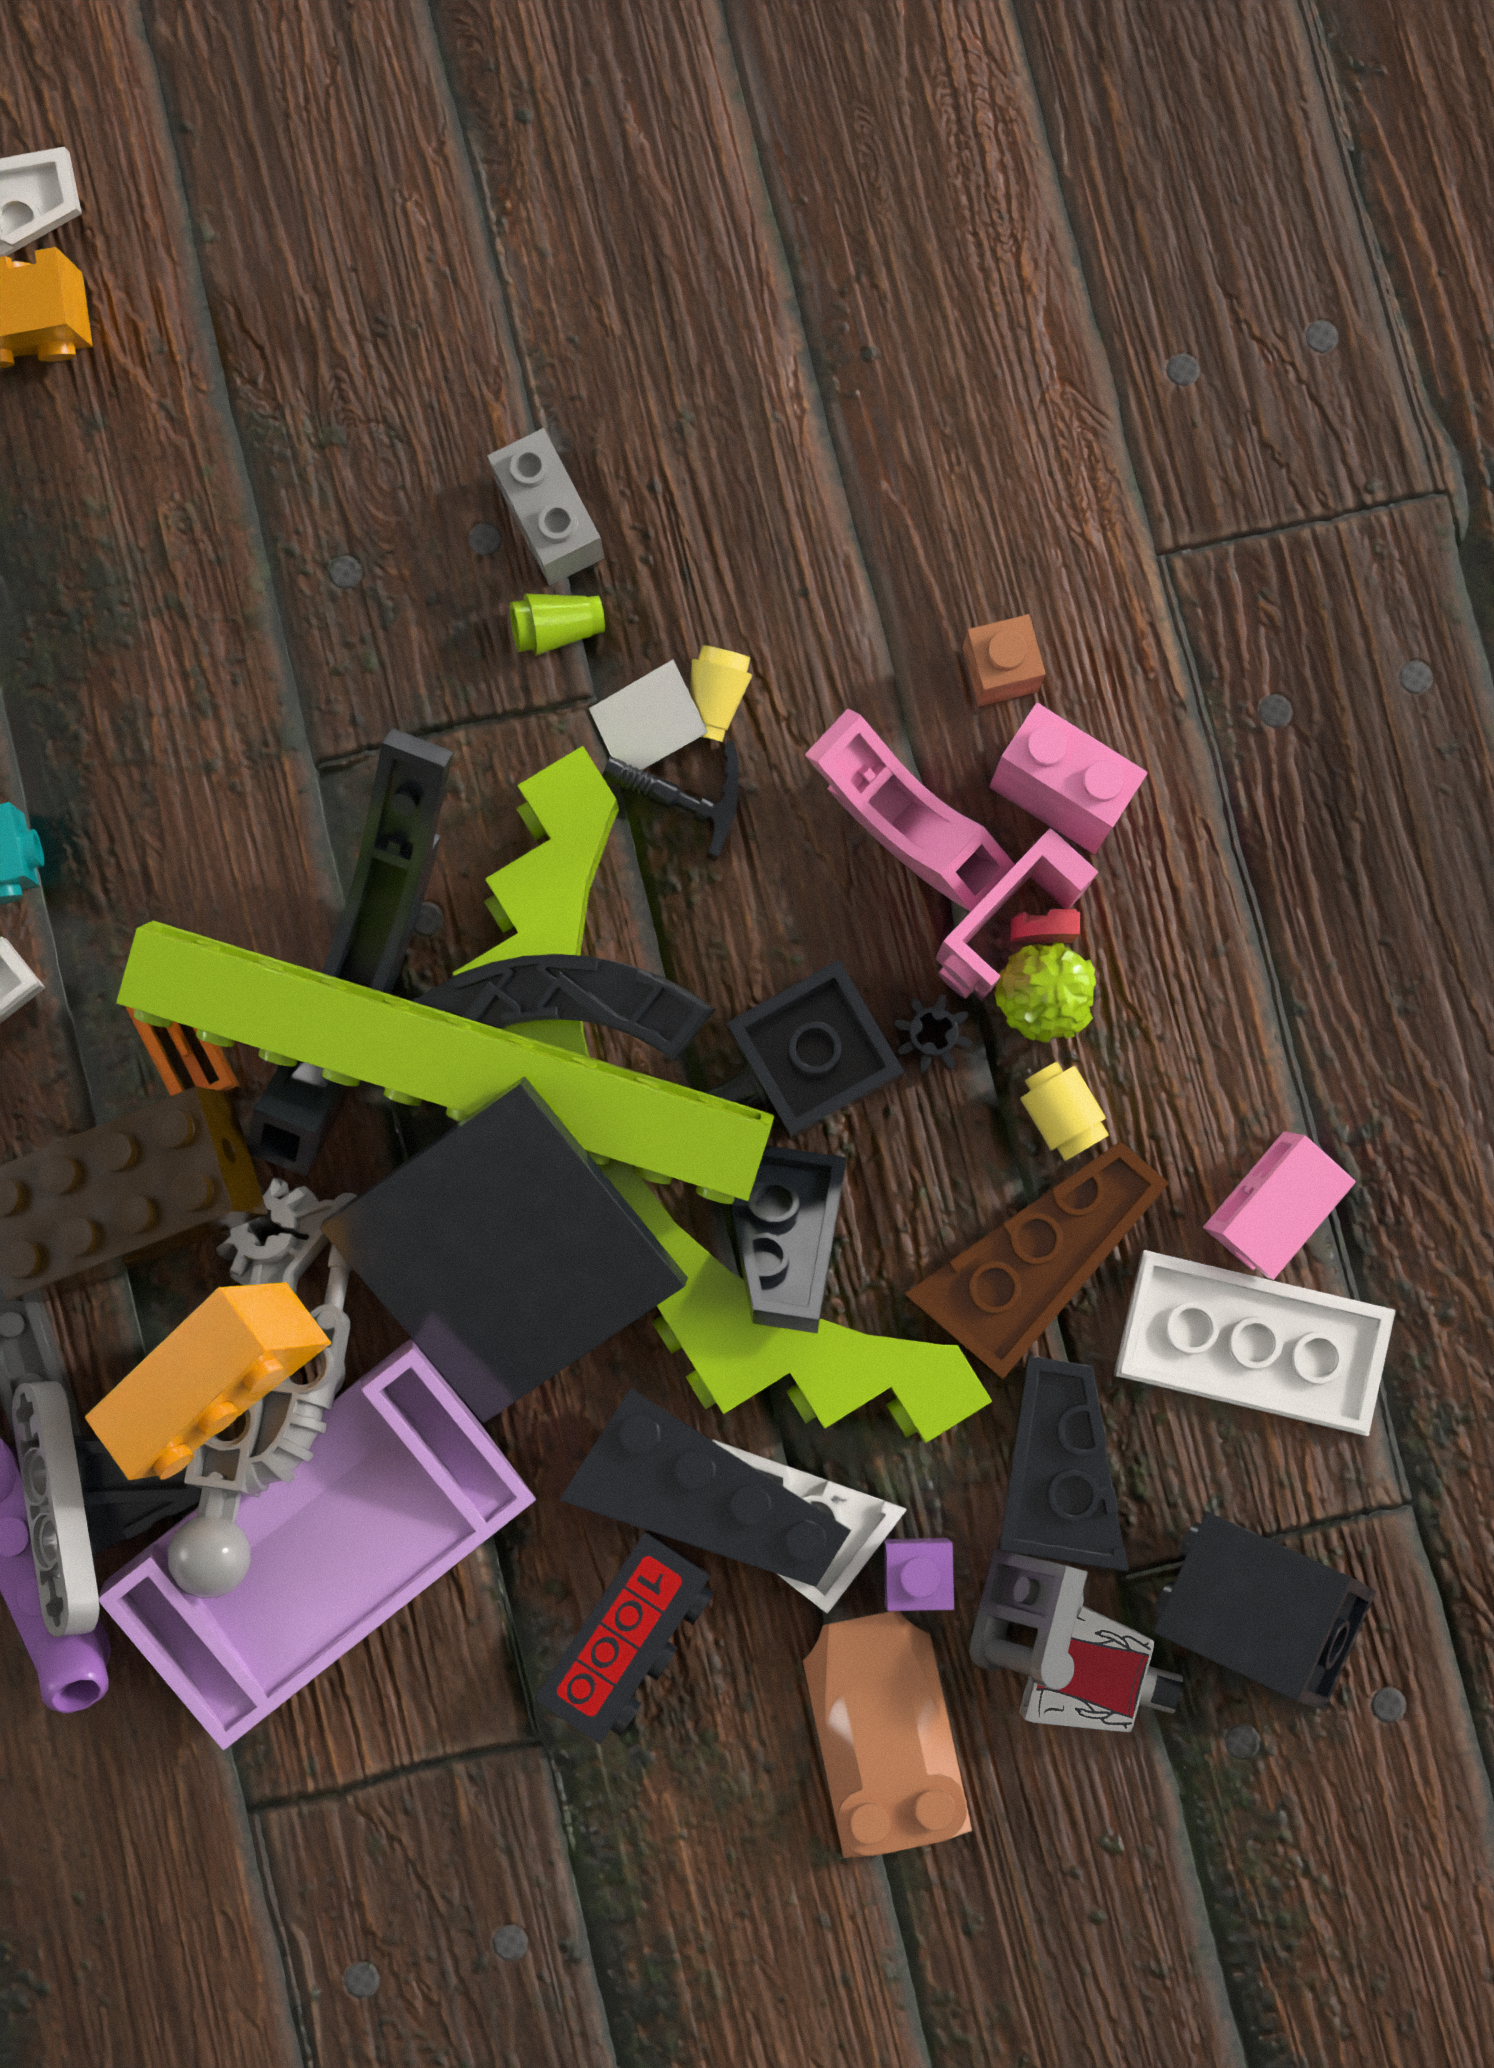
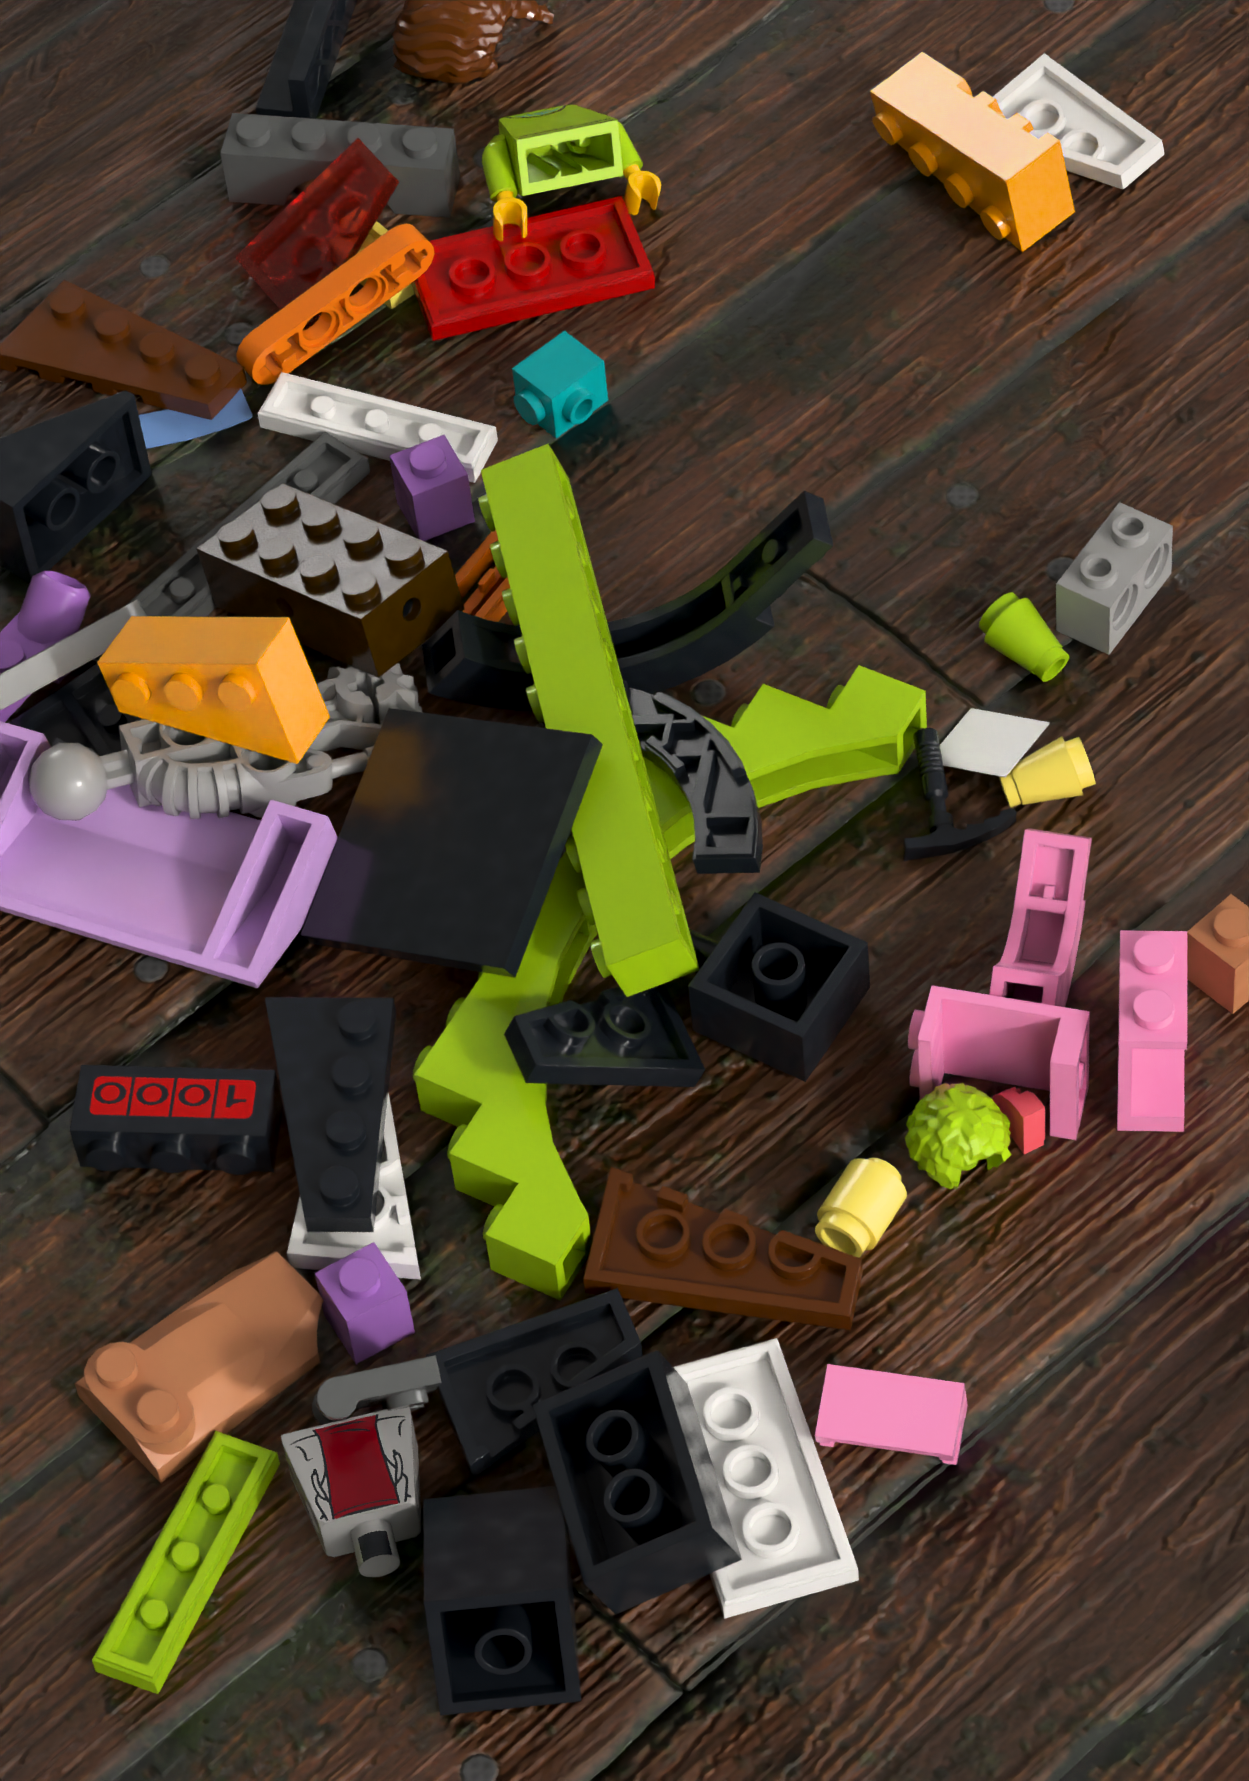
camera: 65 degrees right, 30 degrees down
(47, 1037) = (432, 488): none -> medium lavender brick
(935, 1016) = (859, 1074): black gear -> none
(1066, 1845) = (186, 1562): none -> lime tile
(1243, 1451) = (636, 1482): none -> black brick

